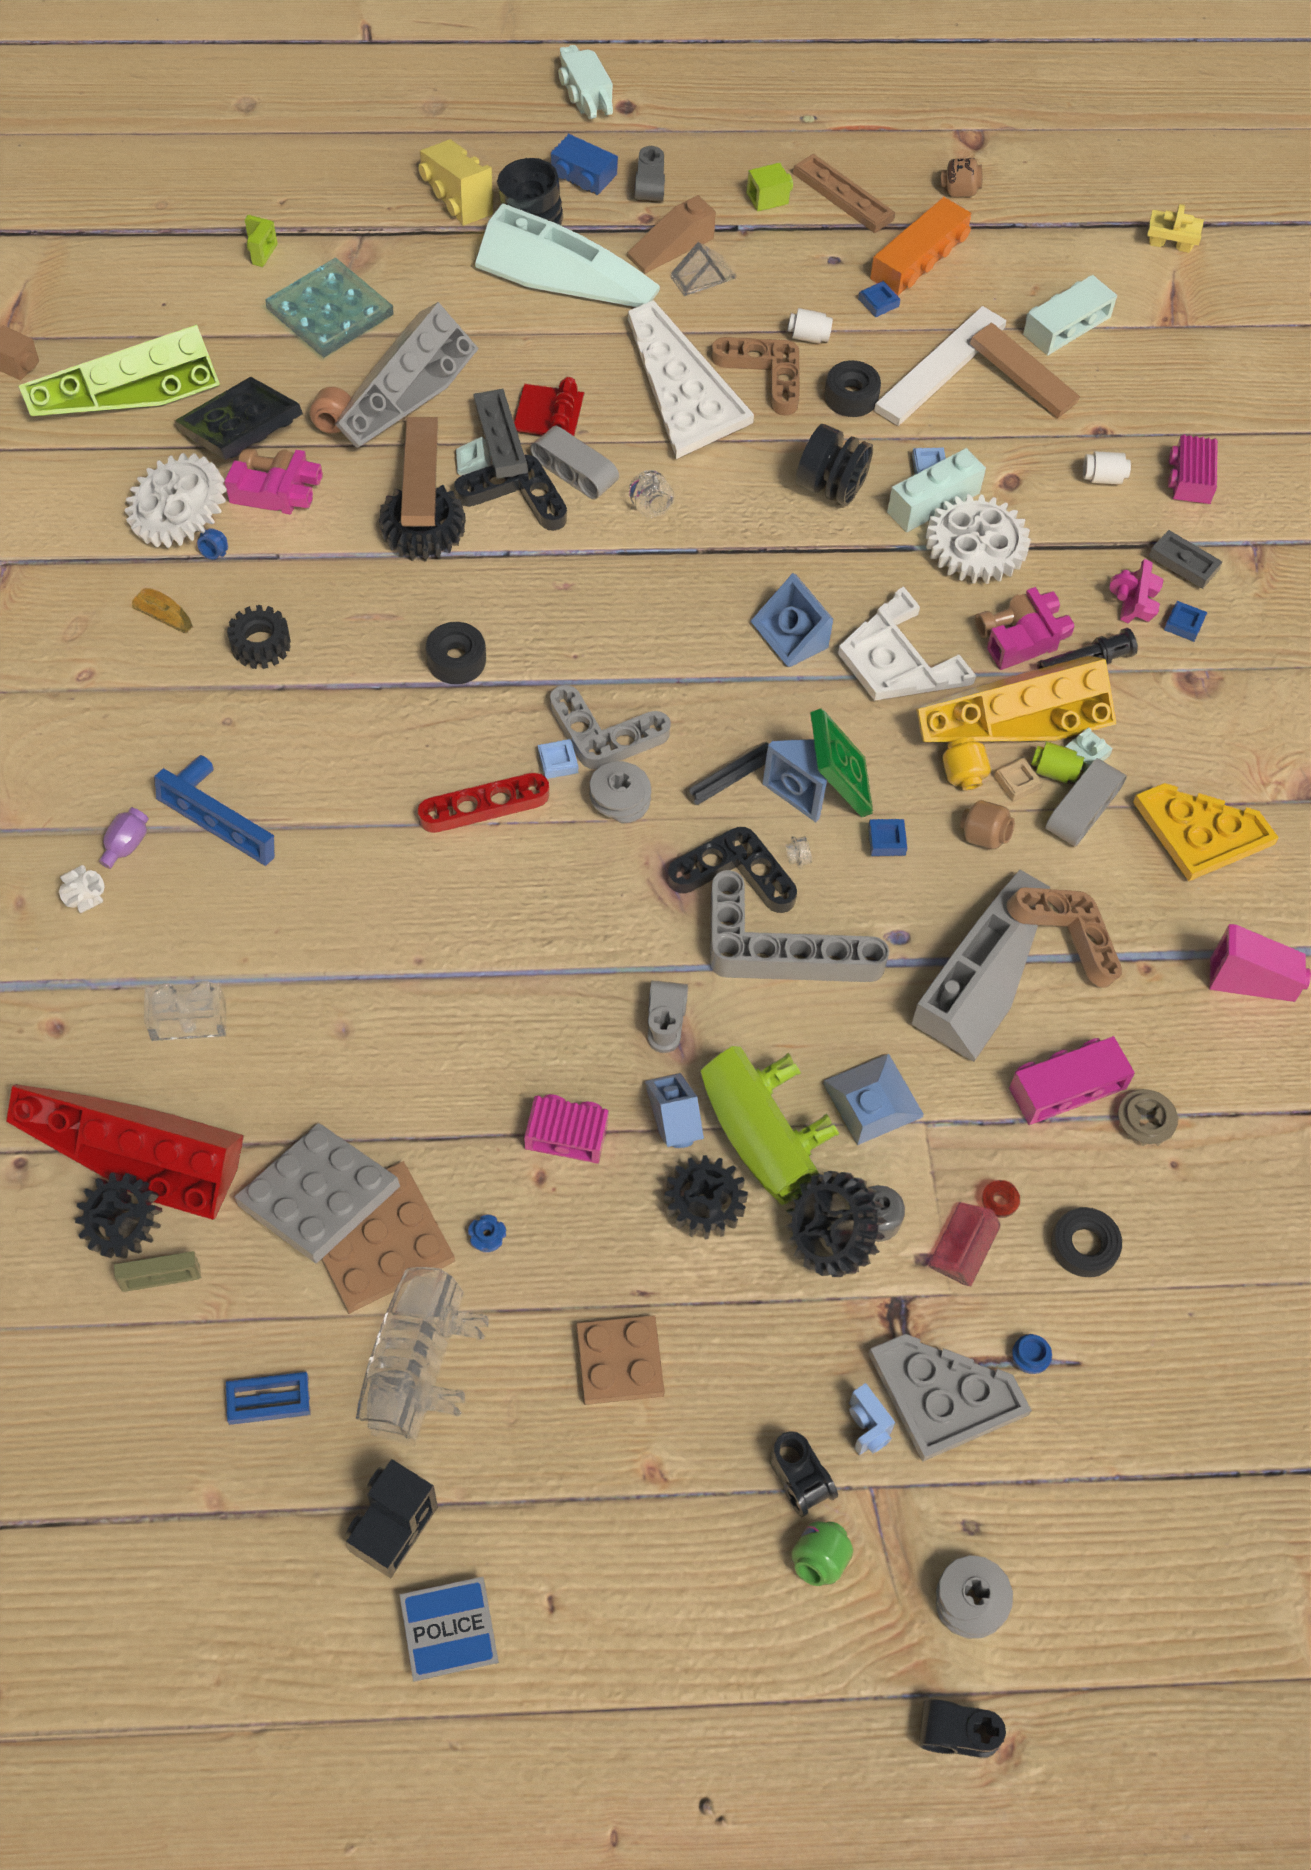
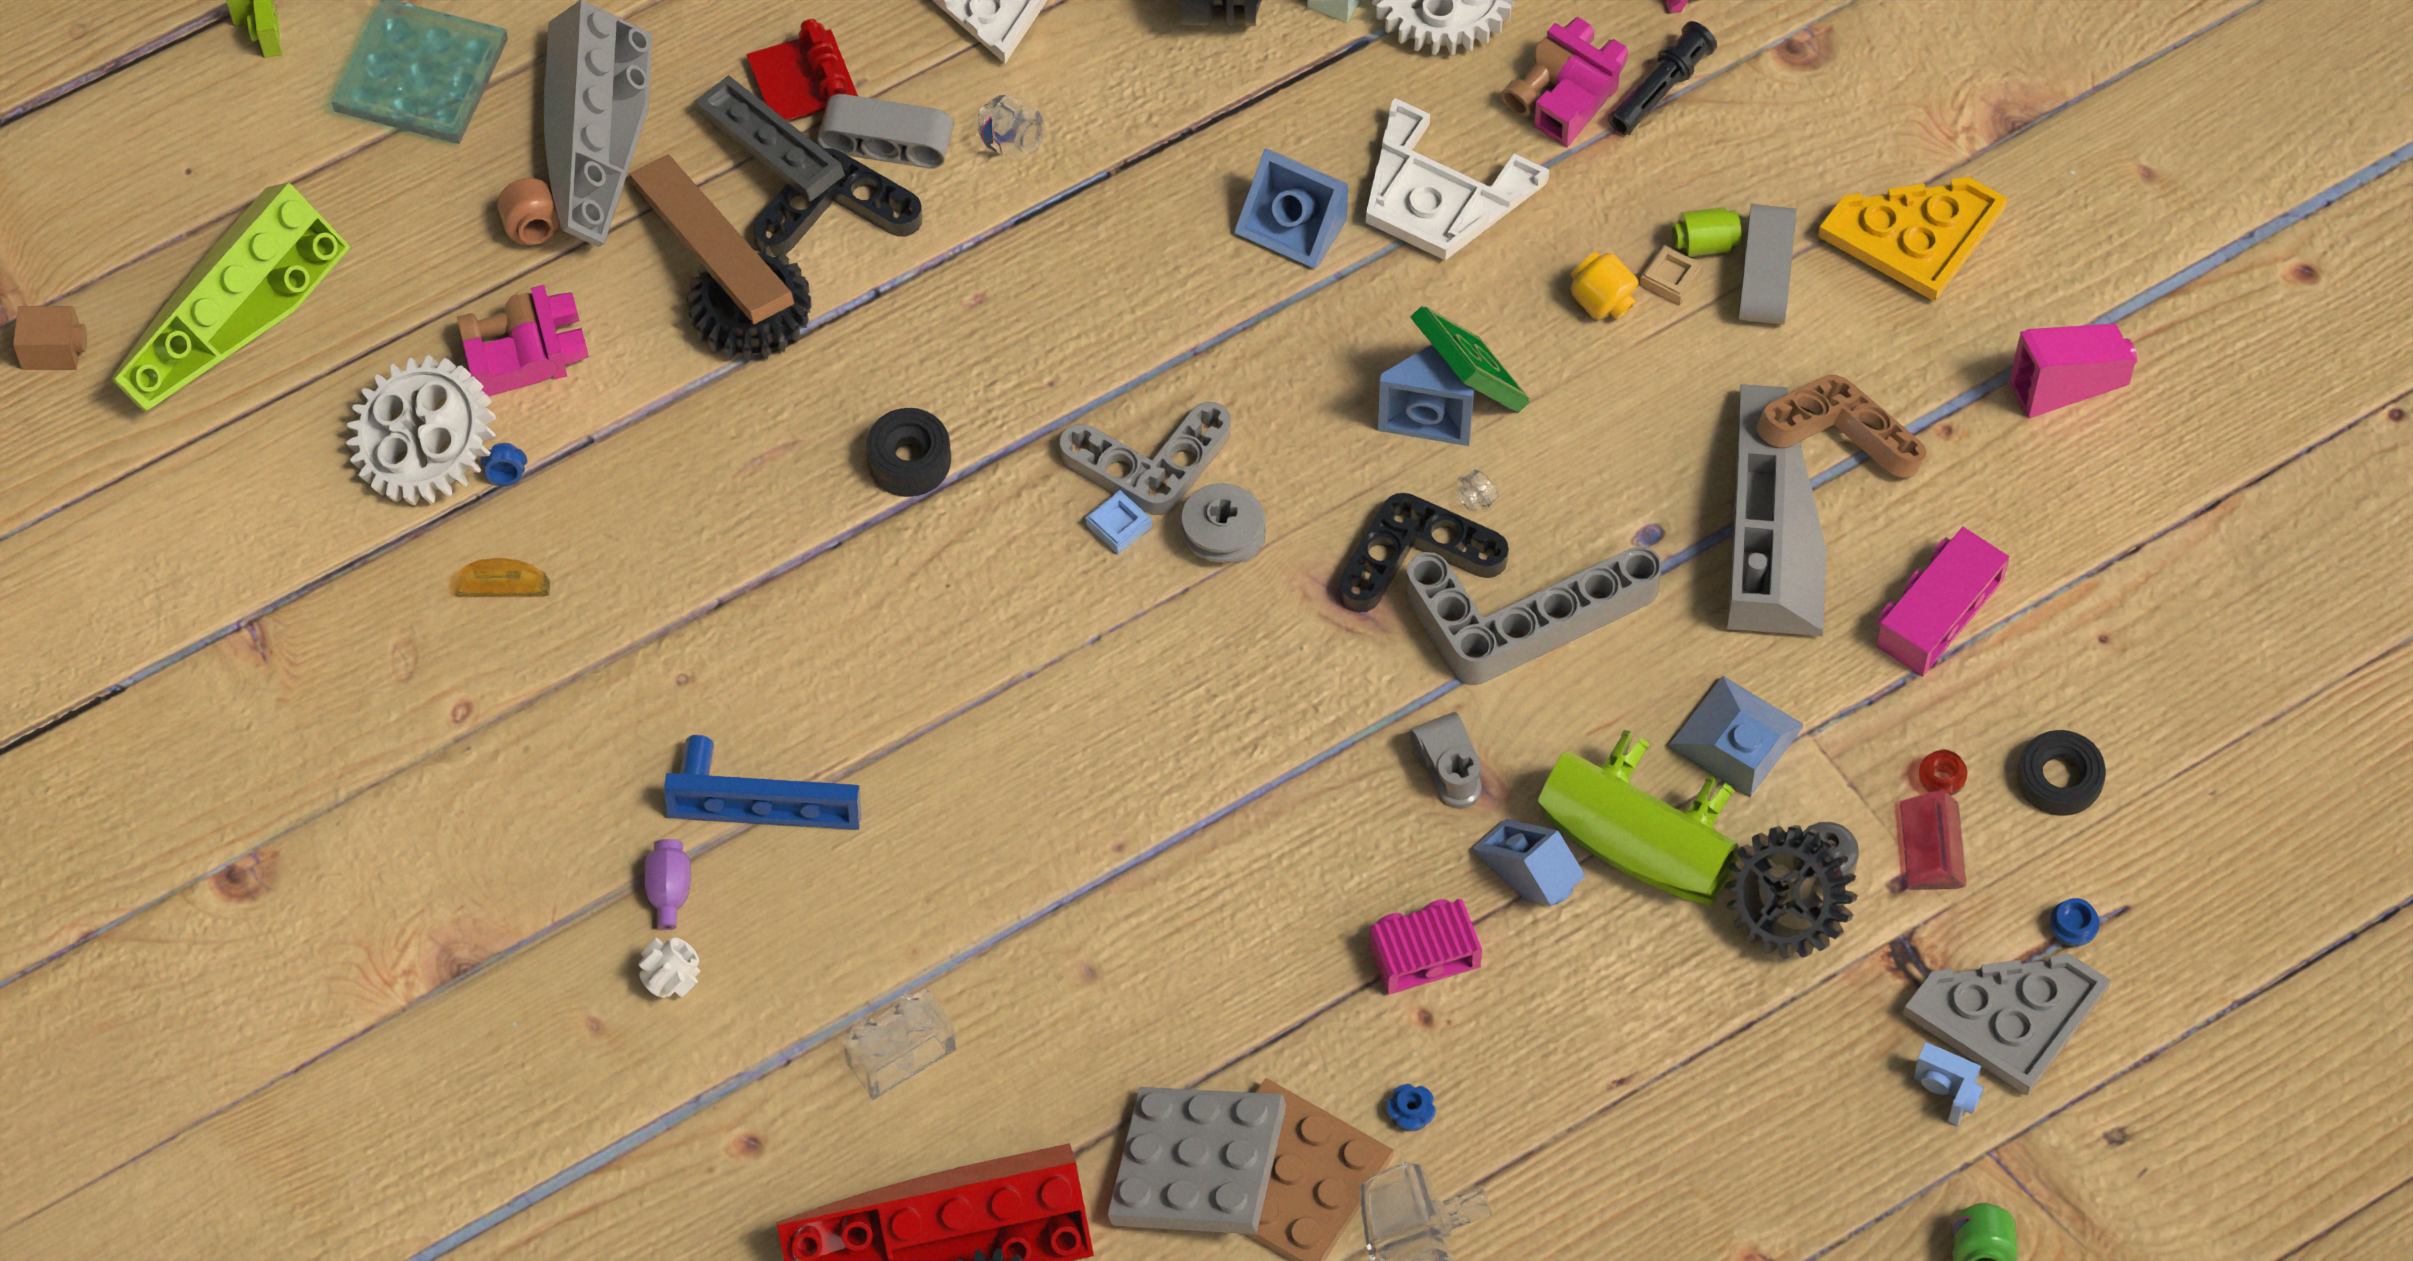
camera: 25 degrees left, 0 degrees up
(238, 418) = (421, 281): black plate -> none
(256, 622) = (651, 576): black tyre -> none
(472, 456) = (750, 186): light aqua slope -> none
(486, 808) = (1062, 615): red beam -> none
(620, 1360) = (1644, 1163): medium nougat plate -> none
(697, 1210) = (1633, 957): black gear -> none
(728, 774) = (1335, 436): black axle -> none
(802, 1475) = (1915, 1174): black piece -> none
(887, 837) = (1567, 422): blue plate -> none
(959, 1611) = (2159, 1222): light grey piece -> none
(987, 824) = (1673, 348): medium nougat head -> none
(1026, 707) = (1631, 178): yellow wedge -> none
(1090, 747) = (1731, 193): light aqua tile -> none
(1144, 1102) = (2065, 592): dark tan gear -> none

